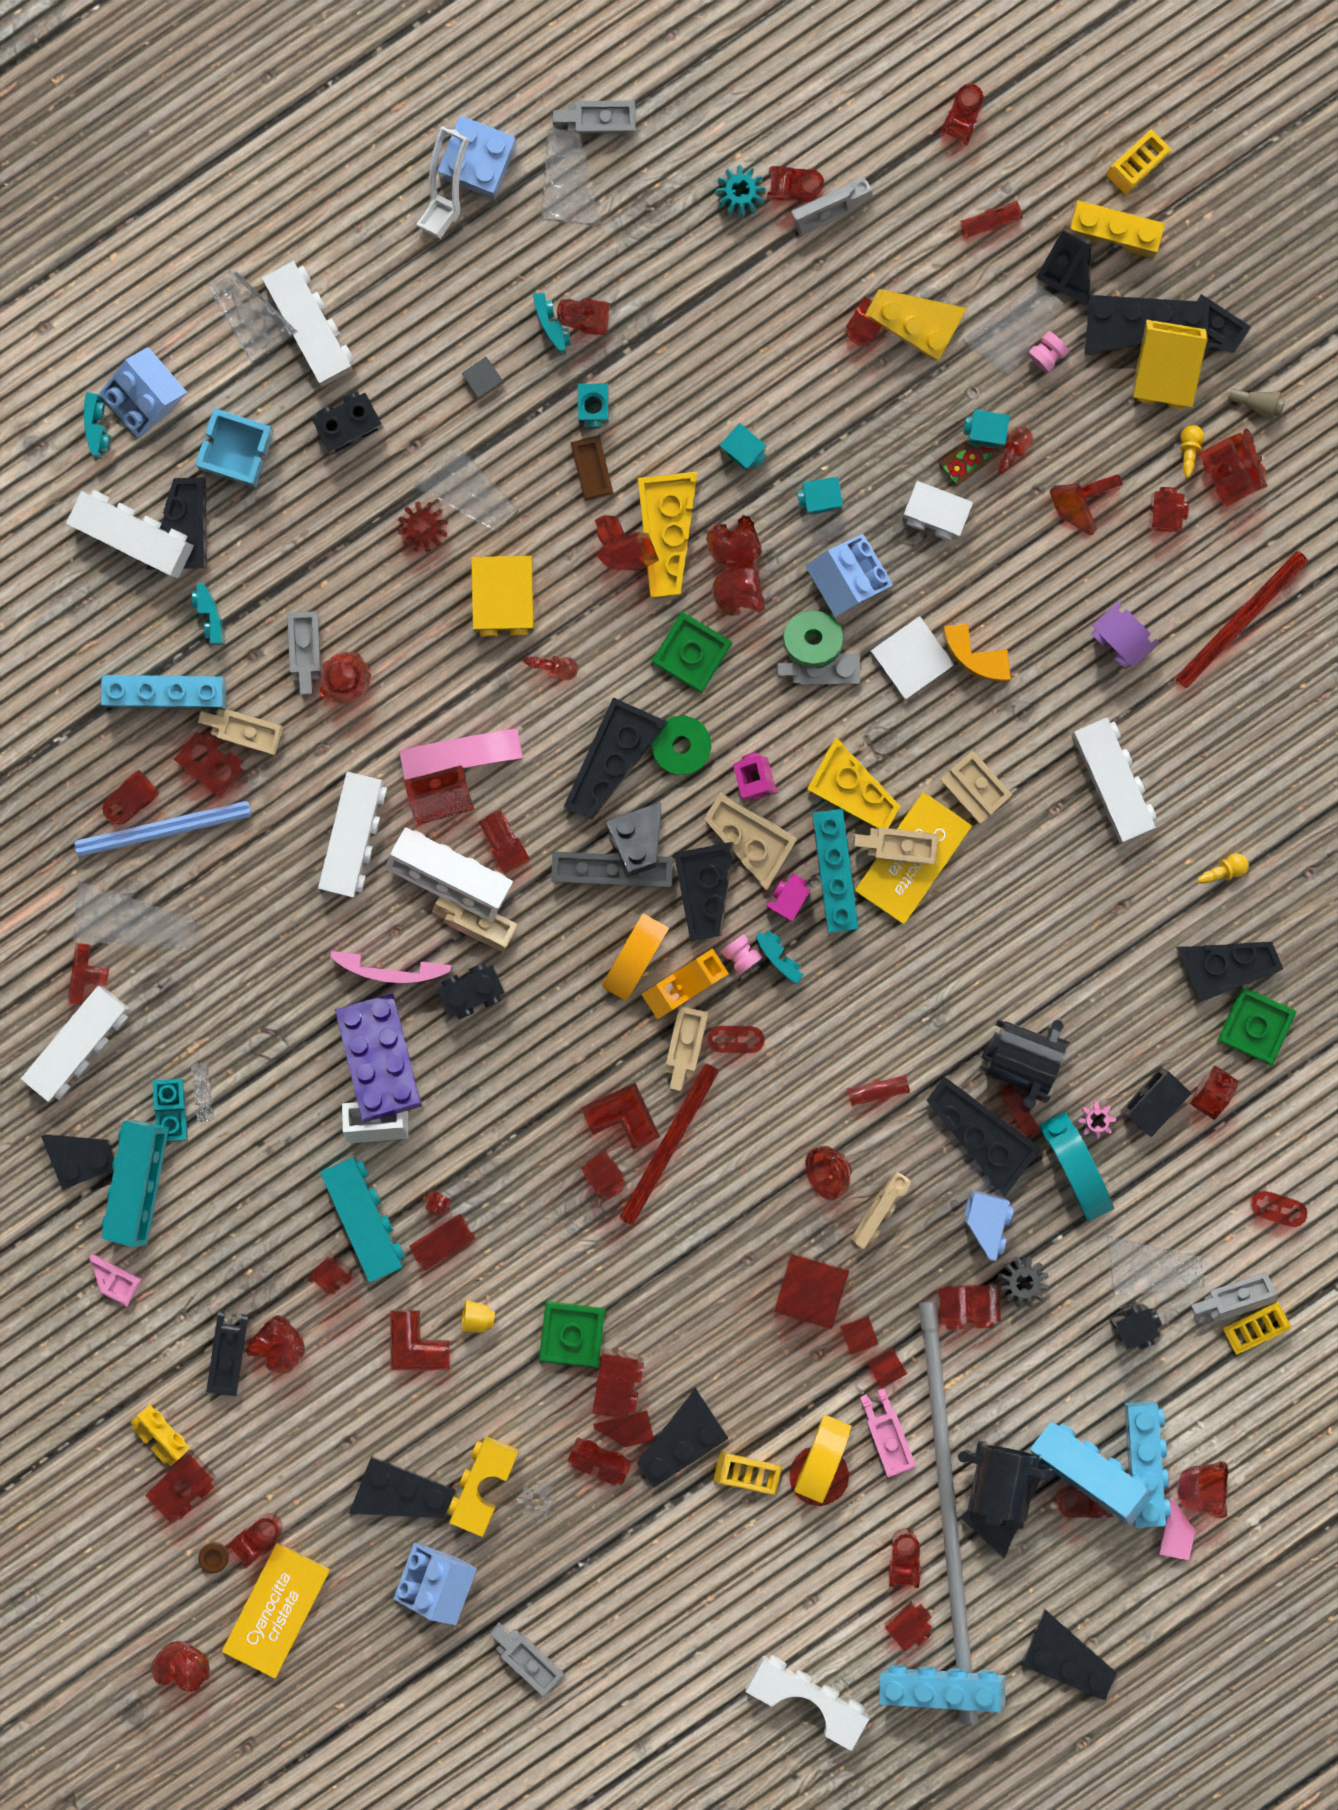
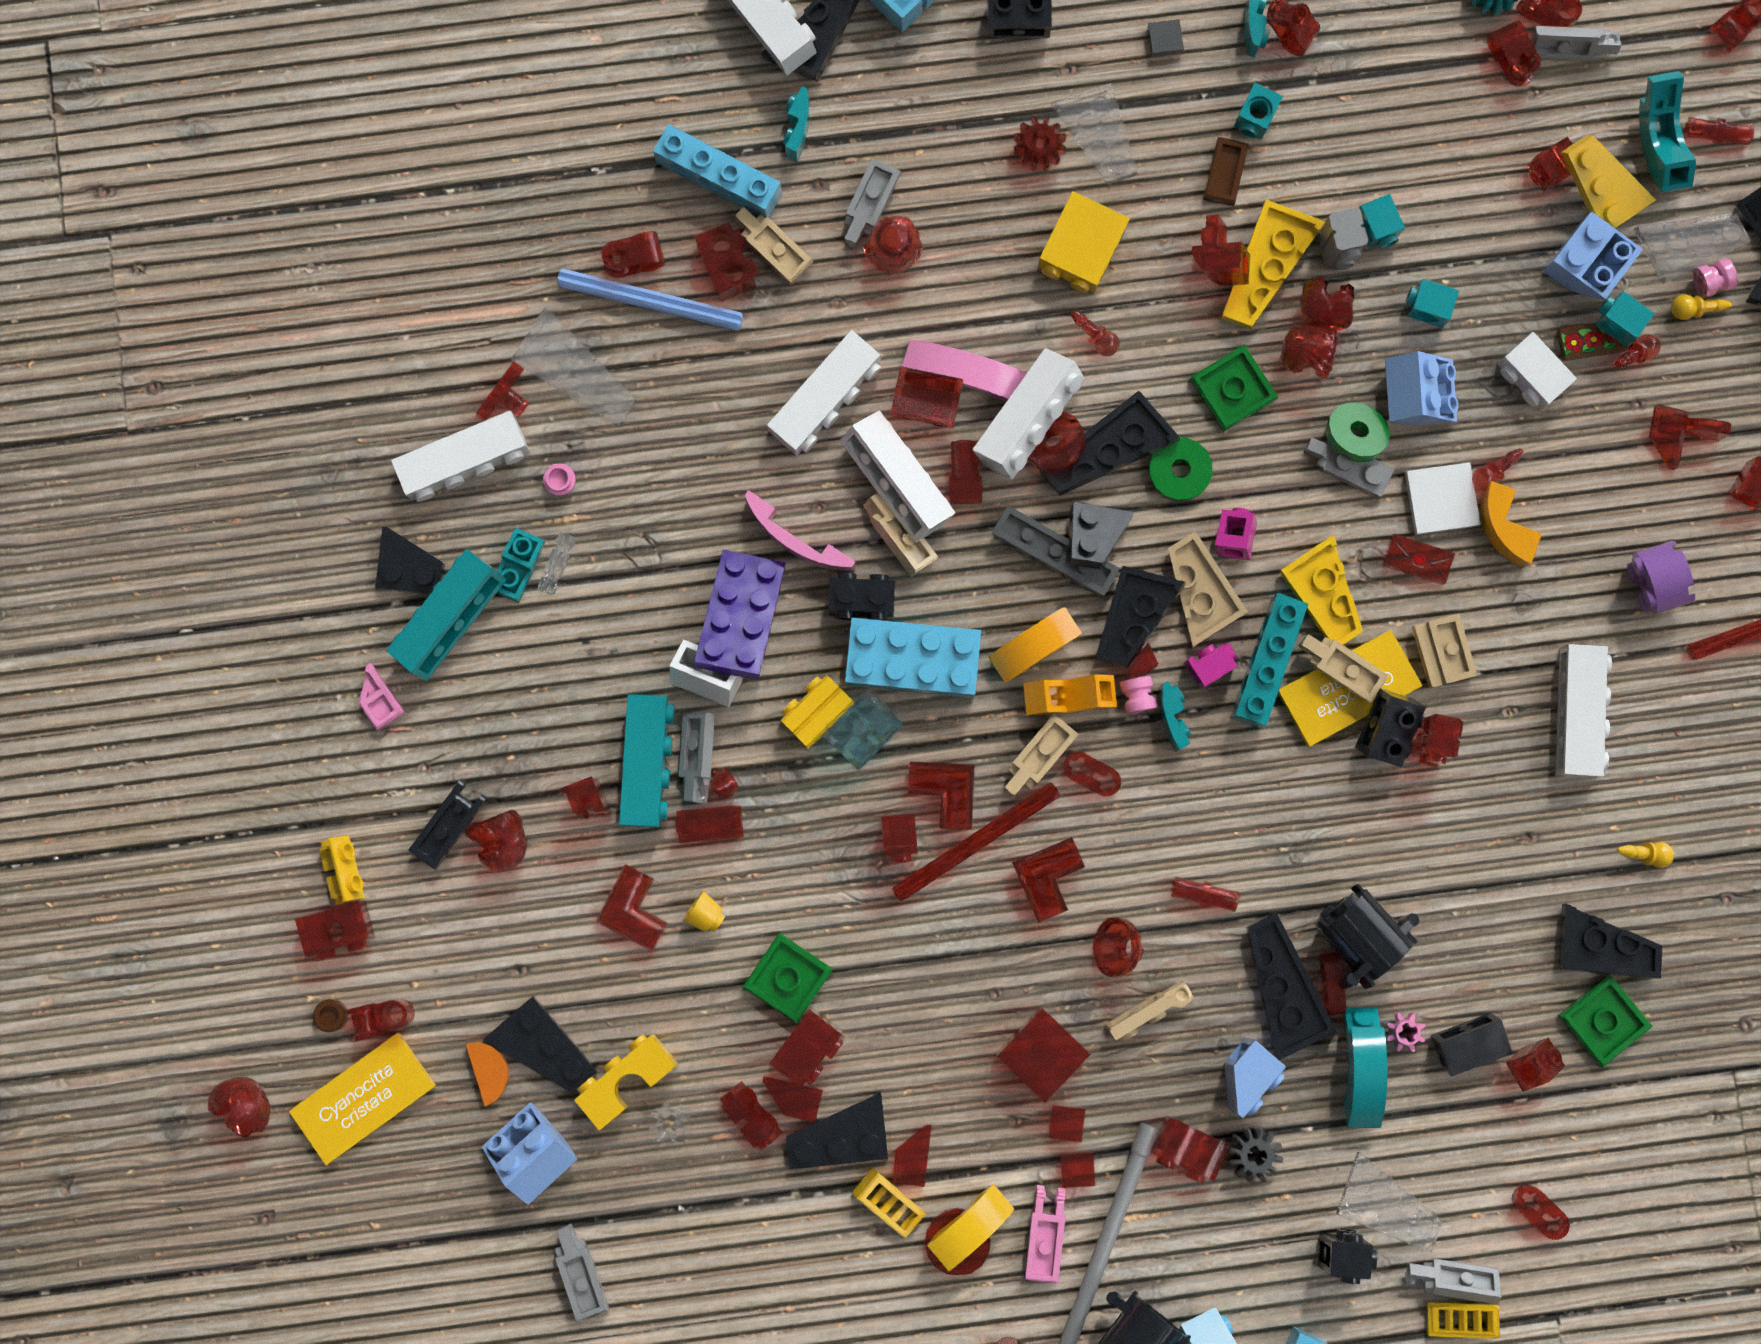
camera: 30 degrees right, 5 degrees down
(167, 1020) = (559, 479): none -> bright pink plate
(367, 1534) = (490, 1070): none -> orange tile
(402, 1191) = (696, 755): none -> light grey hinge
(482, 1104) = (816, 711): none -> yellow brick
(528, 1101) = (863, 729): none -> clear light blue brick
(531, 765) = (1029, 413): none -> white brick
(539, 1020) = (913, 657): none -> medium azure brick
(578, 779) = (1065, 451): none -> clear red tile
(719, 482) = (1342, 239): none -> light grey brick
(731, 927) = (1142, 664): none -> clear red slope
(734, 1145) = (1039, 875): none -> clear red brick
(748, 1428) = (912, 1159): none -> clear red tile
(780, 238) = (1513, 48): none -> clear red piece
(917, 719) = (1418, 559): none -> clear red tile
(937, 389) = (1593, 258): none -> light blue slope
(943, 614) = (1494, 471): none -> clear red bar
(946, 251) = (1661, 133): none -> teal arch
(962, 876) = (1390, 727): none -> black brick
(1004, 868) = (1437, 740): none -> clear red brick
(1036, 388) = (1686, 306): none -> yellow bar

